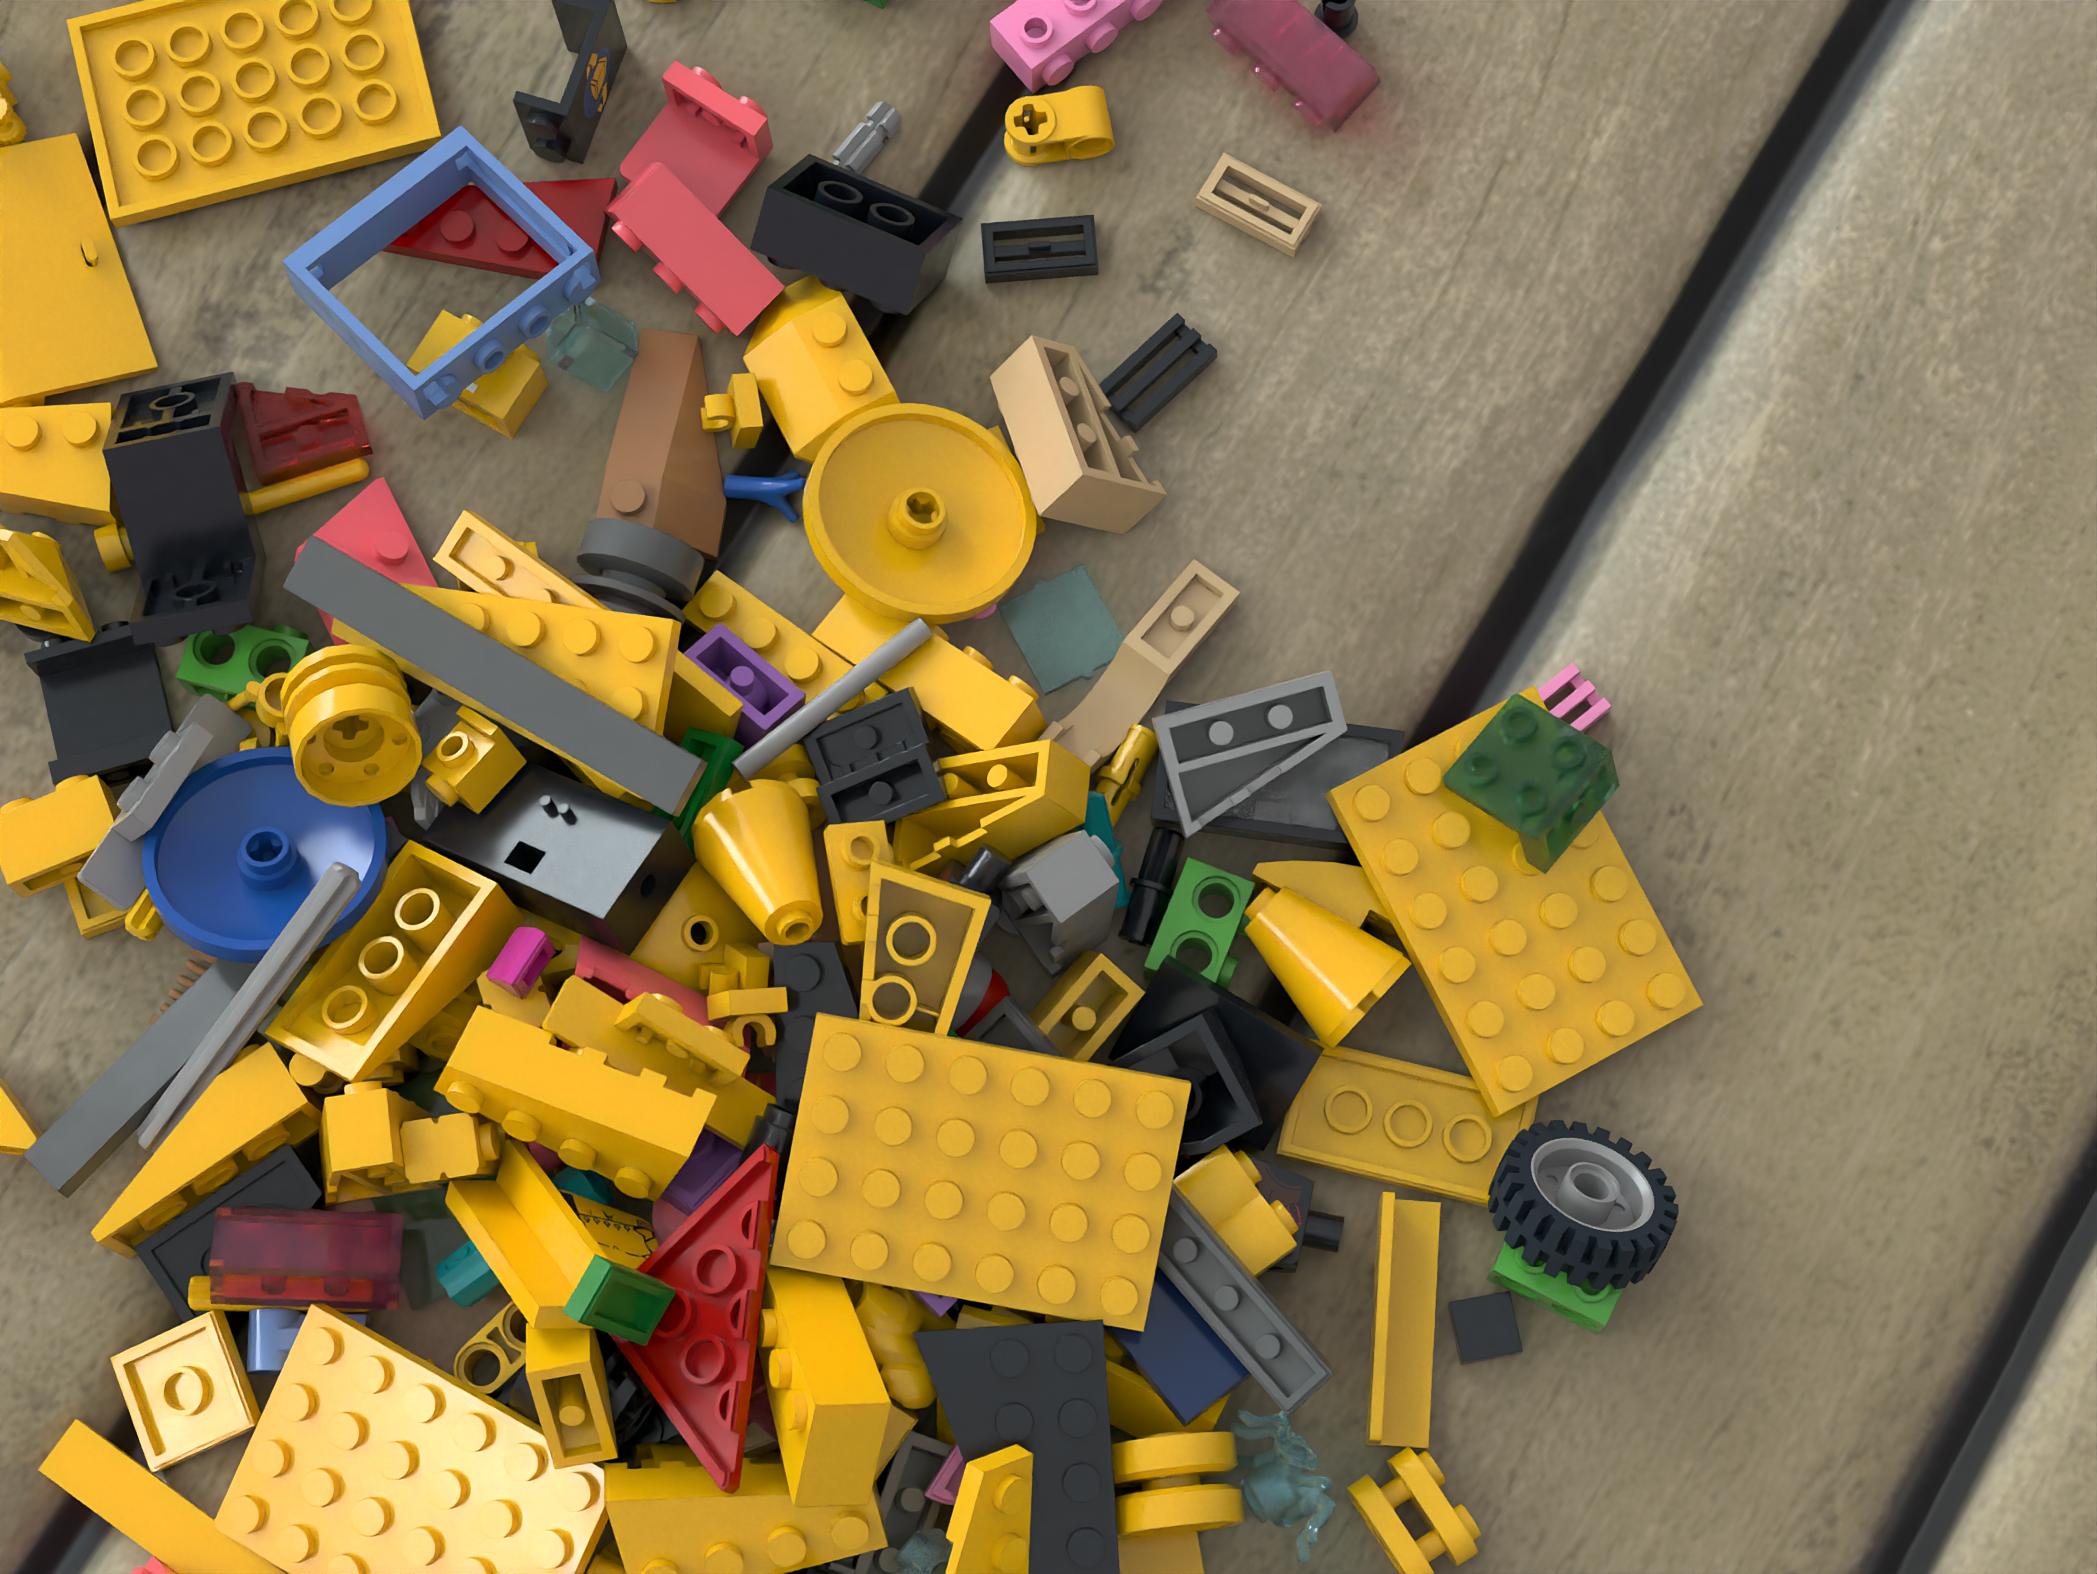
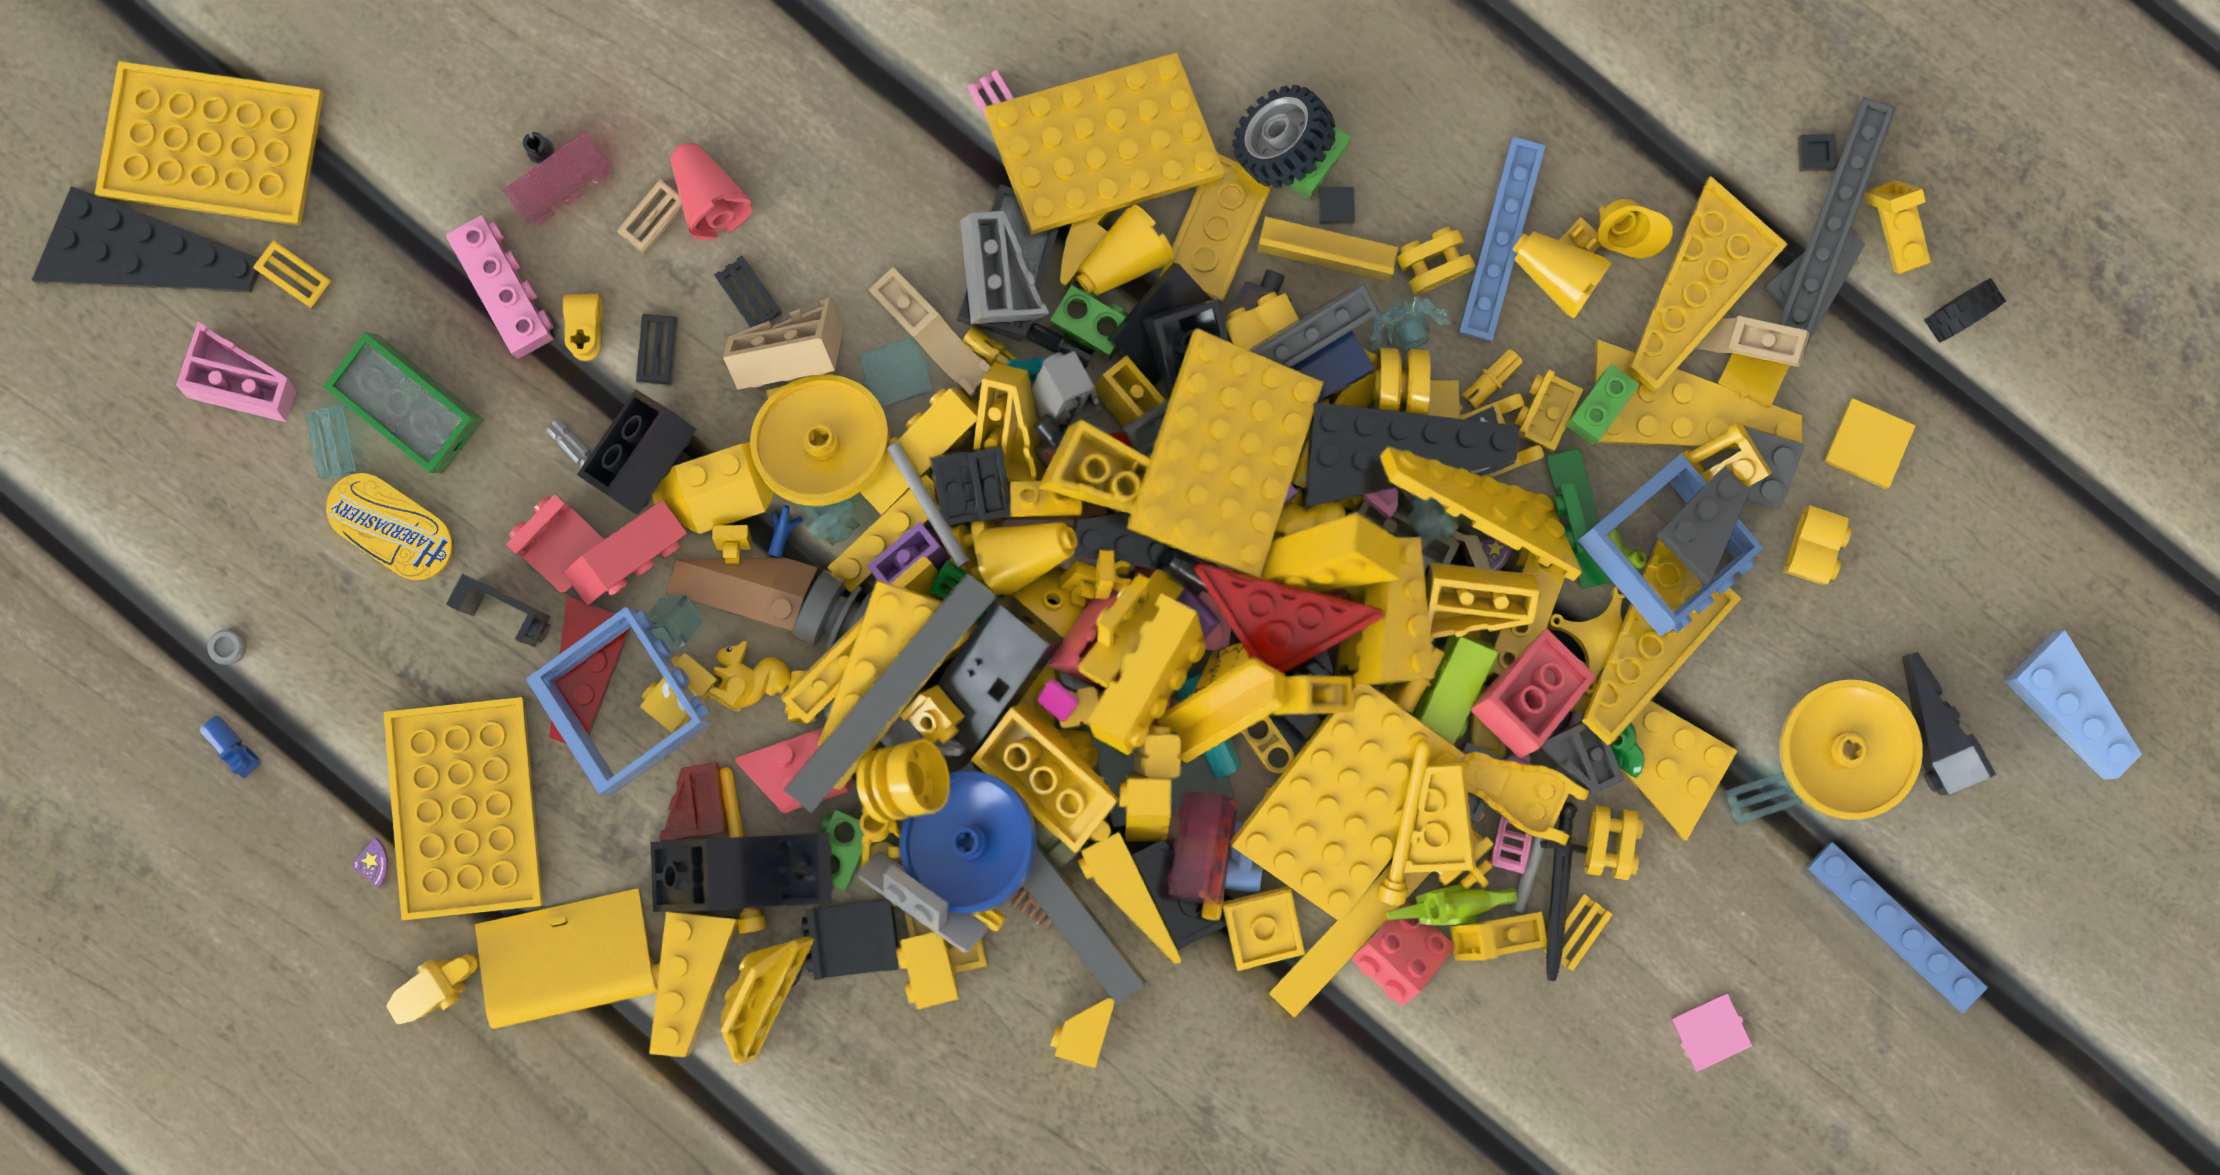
camera: 85 degrees left, 10 degrees up
(252, 1002) = (1061, 858): light grey axle -> none
(503, 470) = (744, 685): none -> yellow animal
(619, 1300) = (1273, 657): green tile -> none
(787, 562) = (831, 521): none -> clear light blue brick
(1306, 275) = (707, 193): none -> coral cone
(1535, 778) = (1042, 115): clear green bracket -> none

